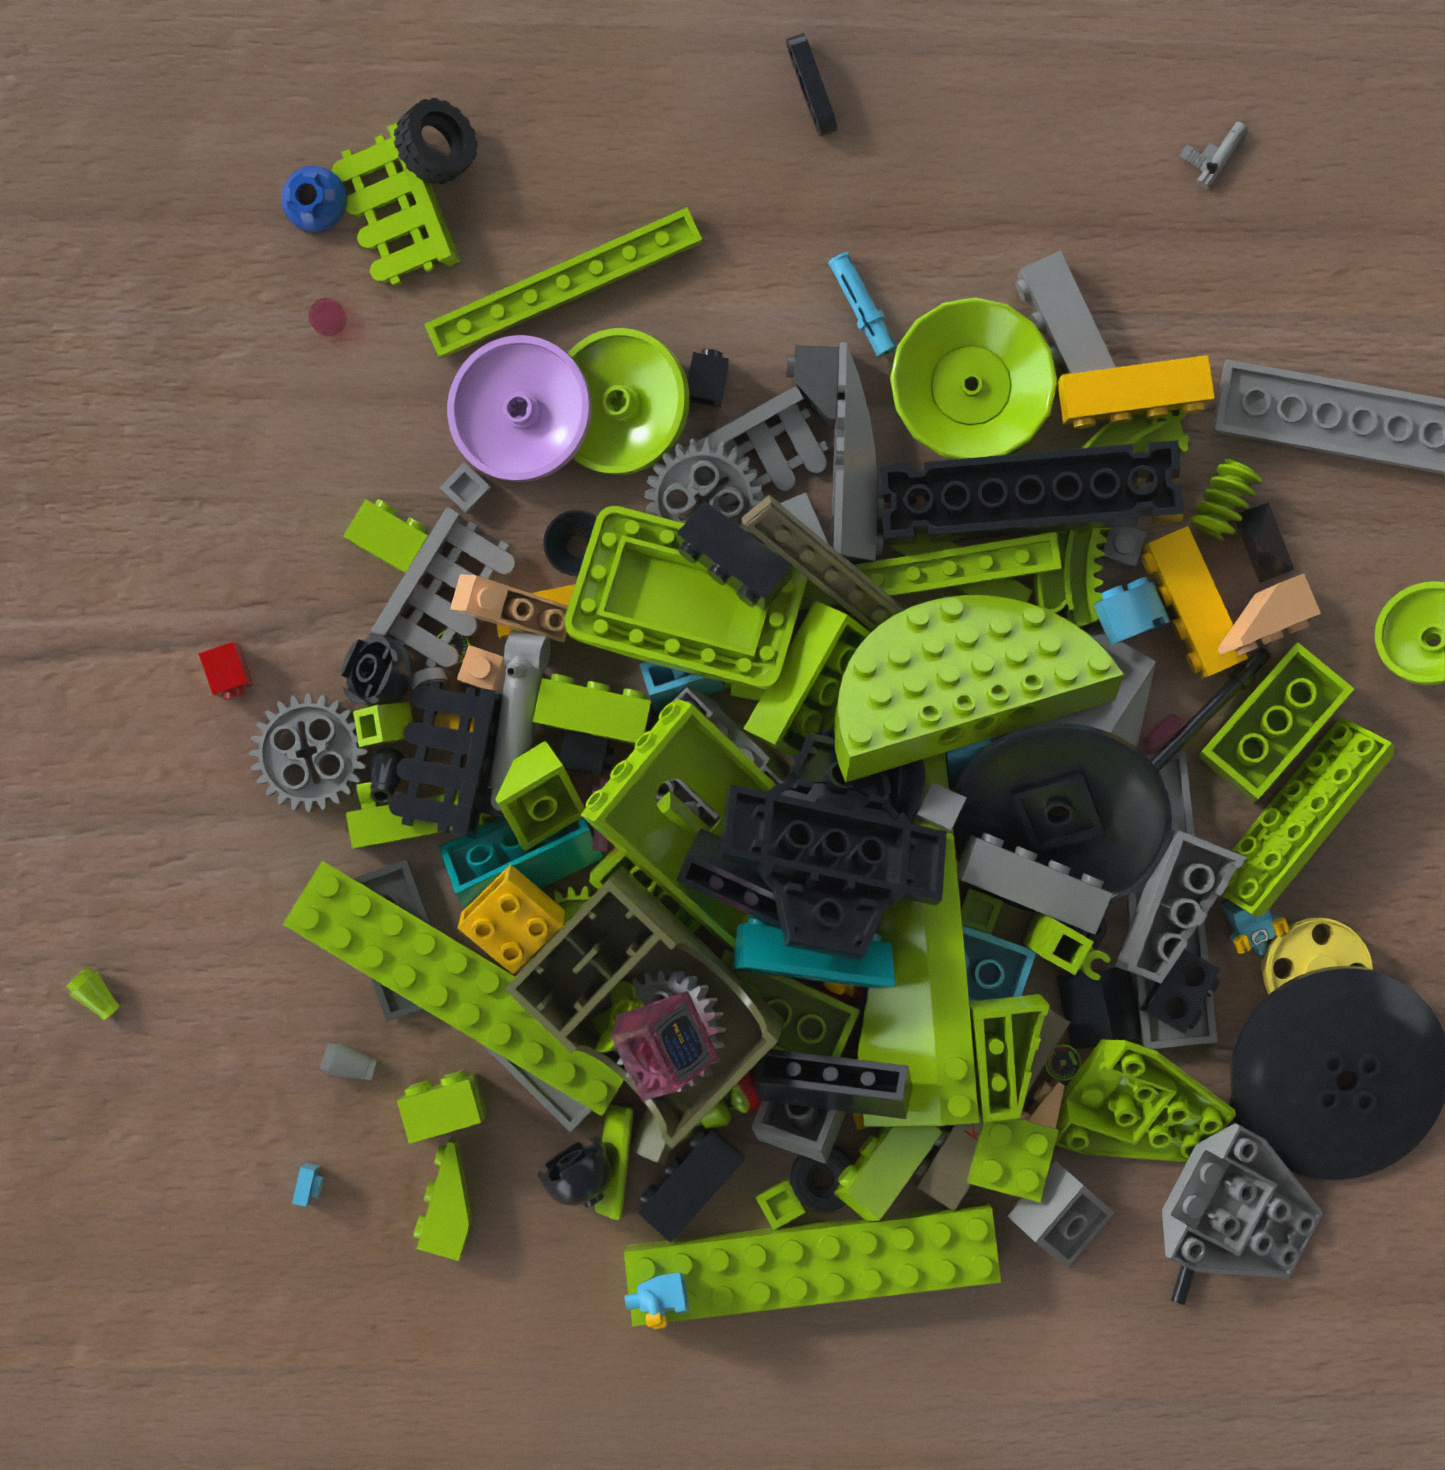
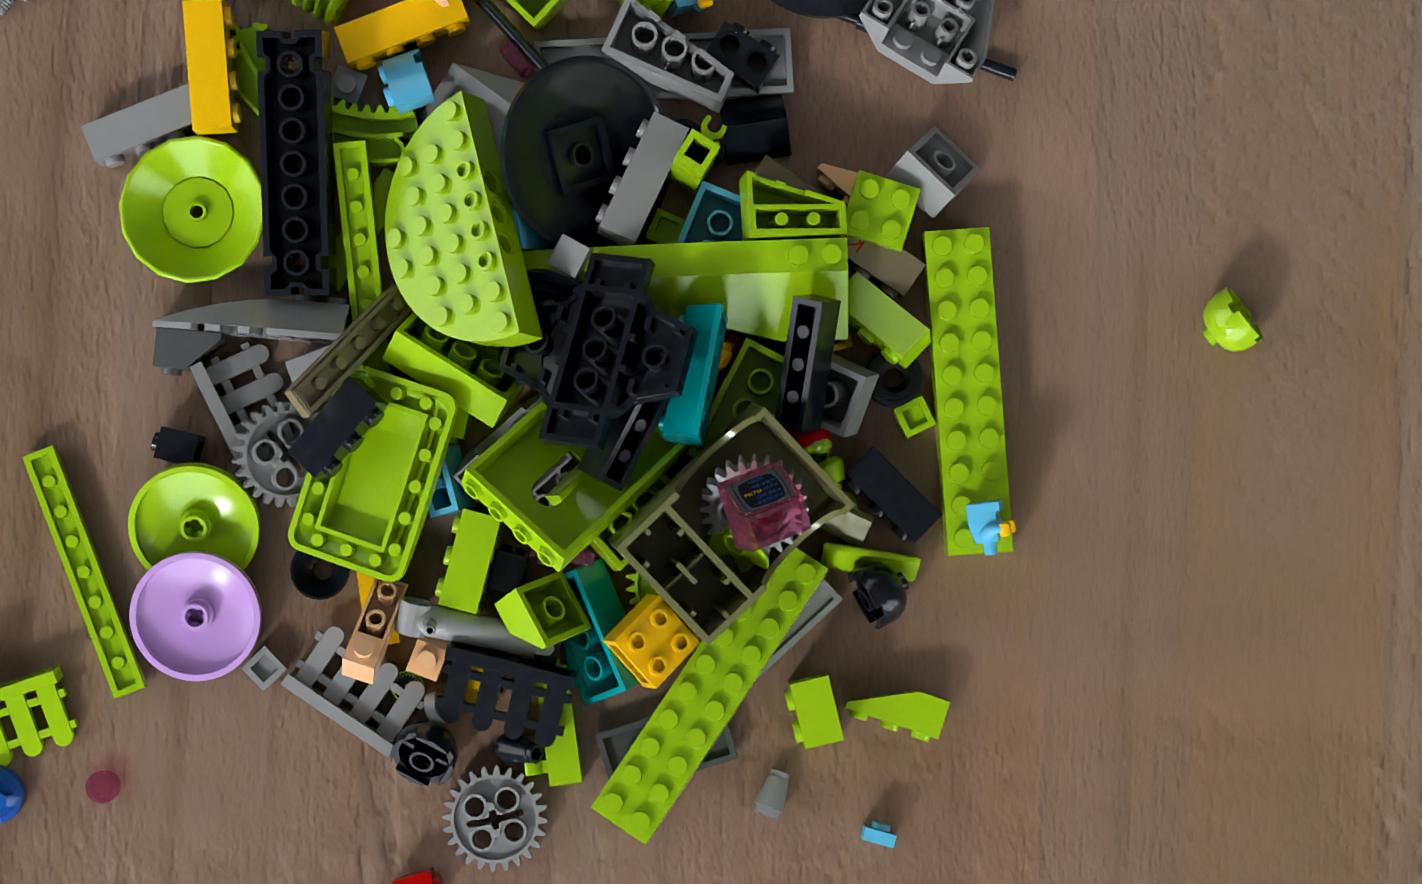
camera: 85 degrees left, 0 degrees up
(382, 723) = (472, 750): lime brick -> none
(385, 535) = (304, 740): lime brick -> none
(869, 318) = (131, 299): medium azure pin -> none
(1063, 1062) = (802, 163): black tile -> none
(1137, 1106) = (841, 100): lime wedge -> none

